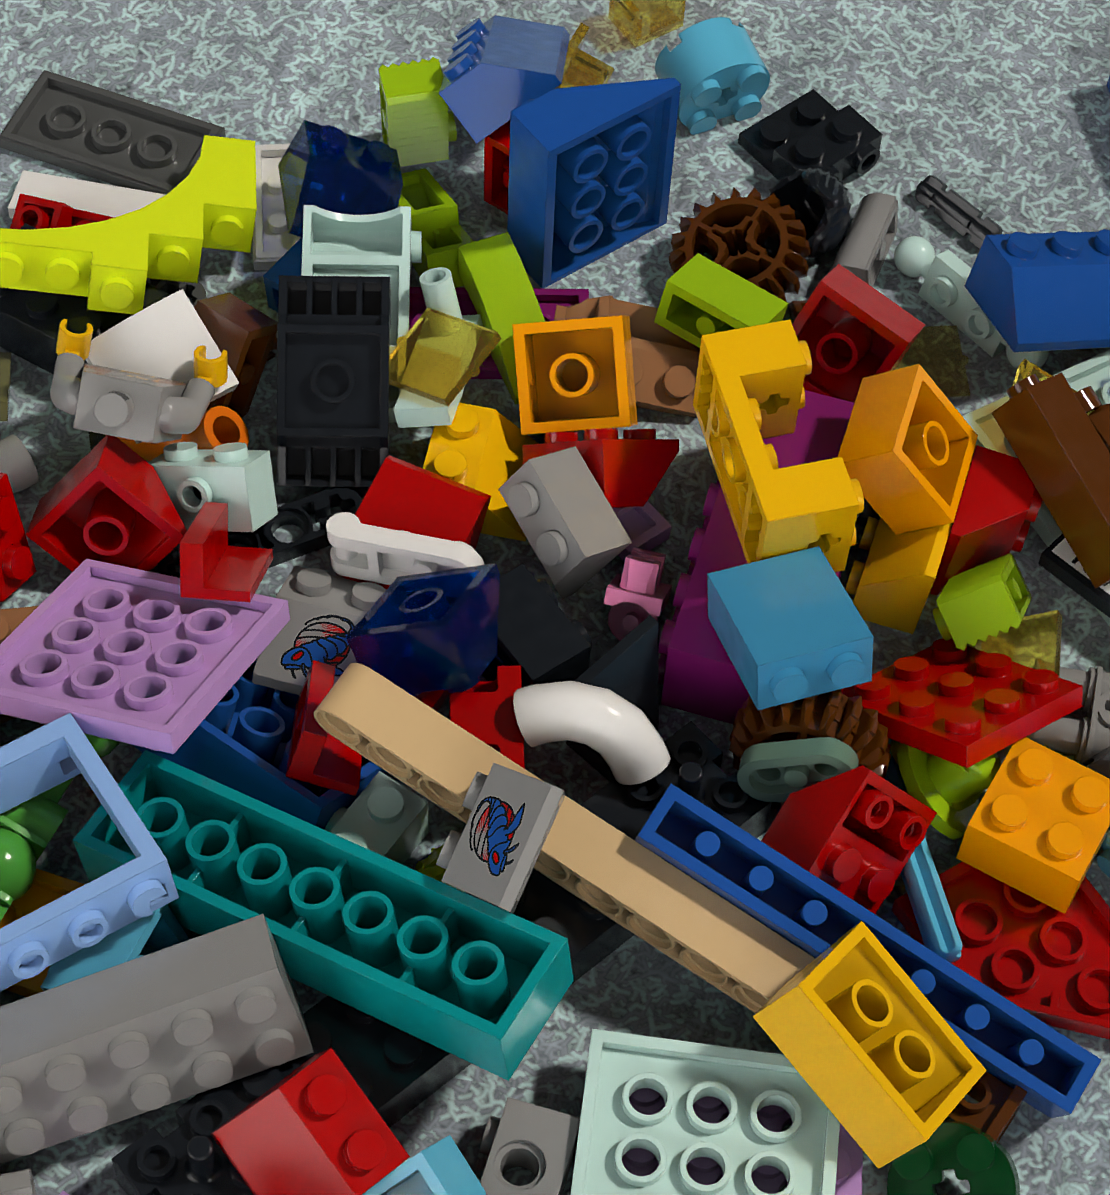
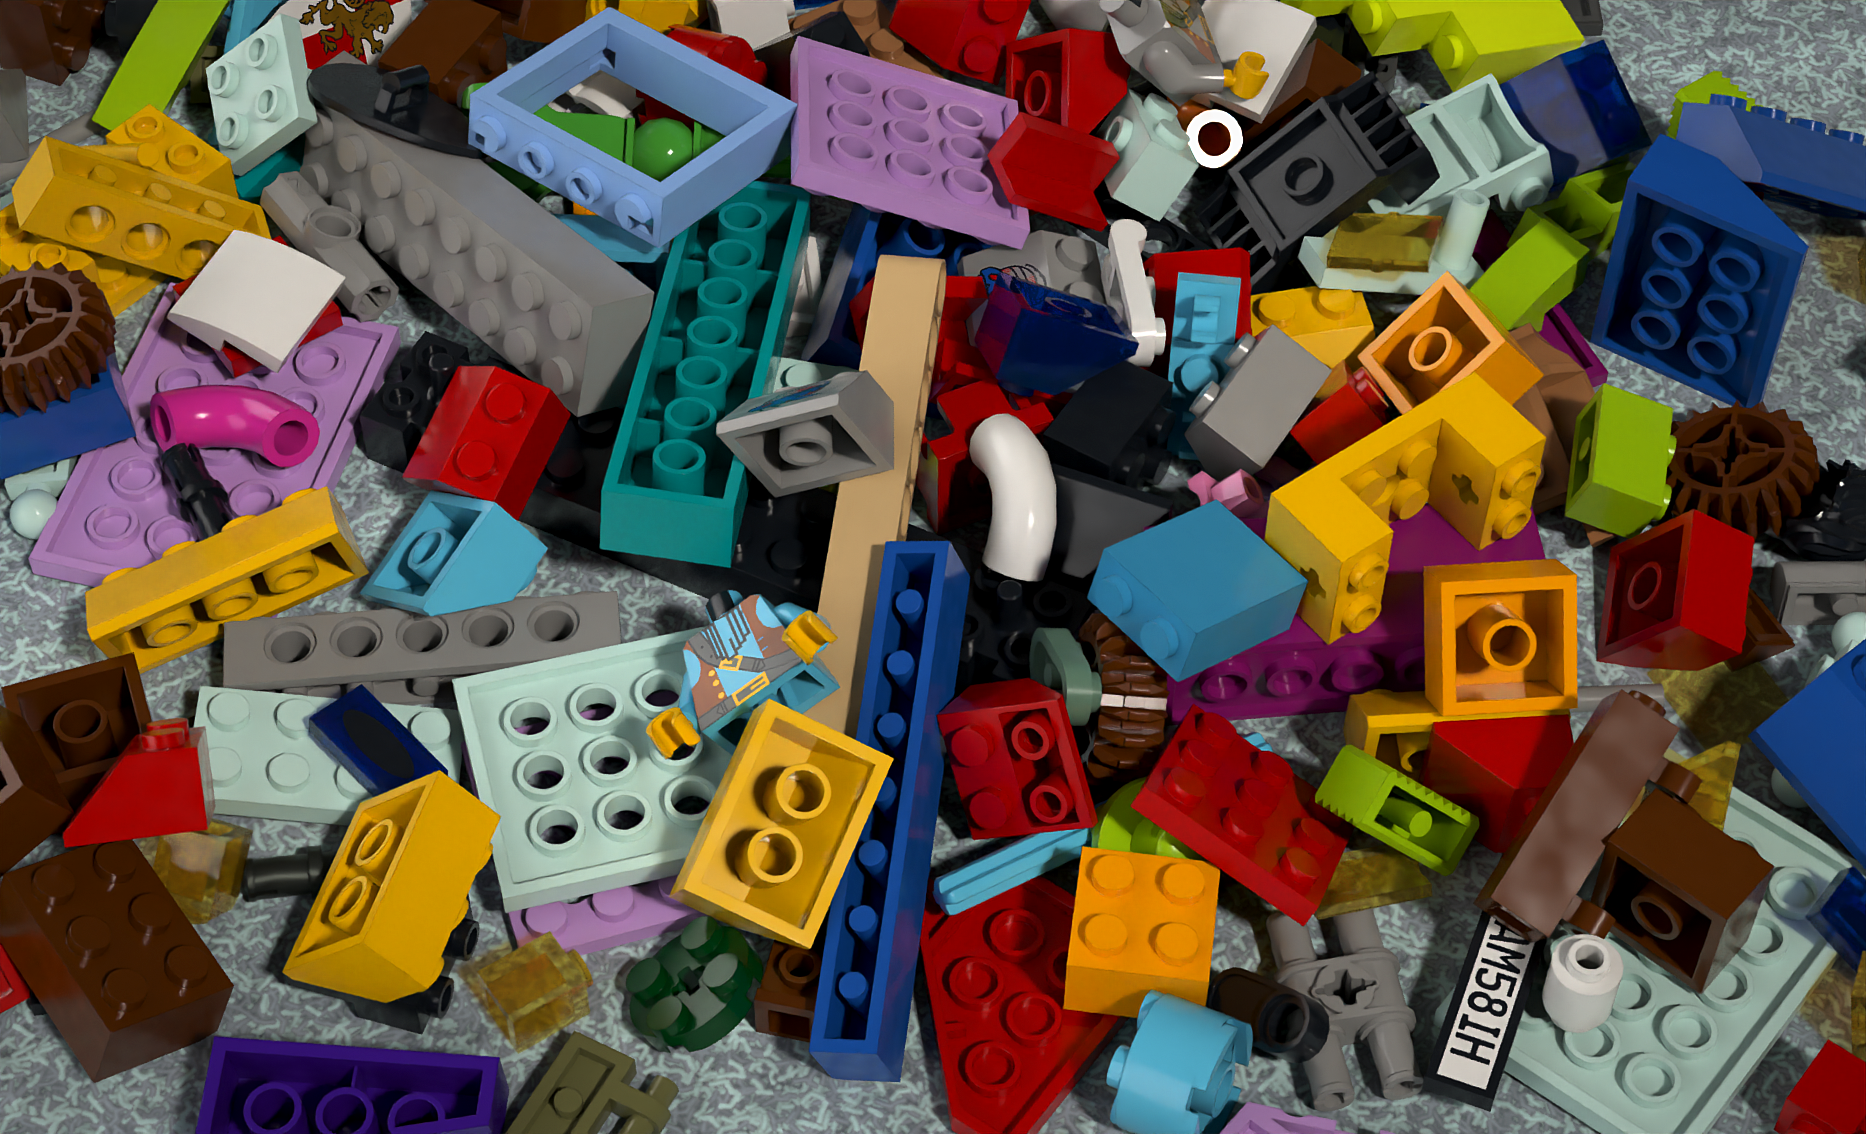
camera: 70 degrees right, 5 degrees down
(476, 518) = (1200, 342): none -> medium azure plate
(701, 1004) = (739, 664): none -> torso

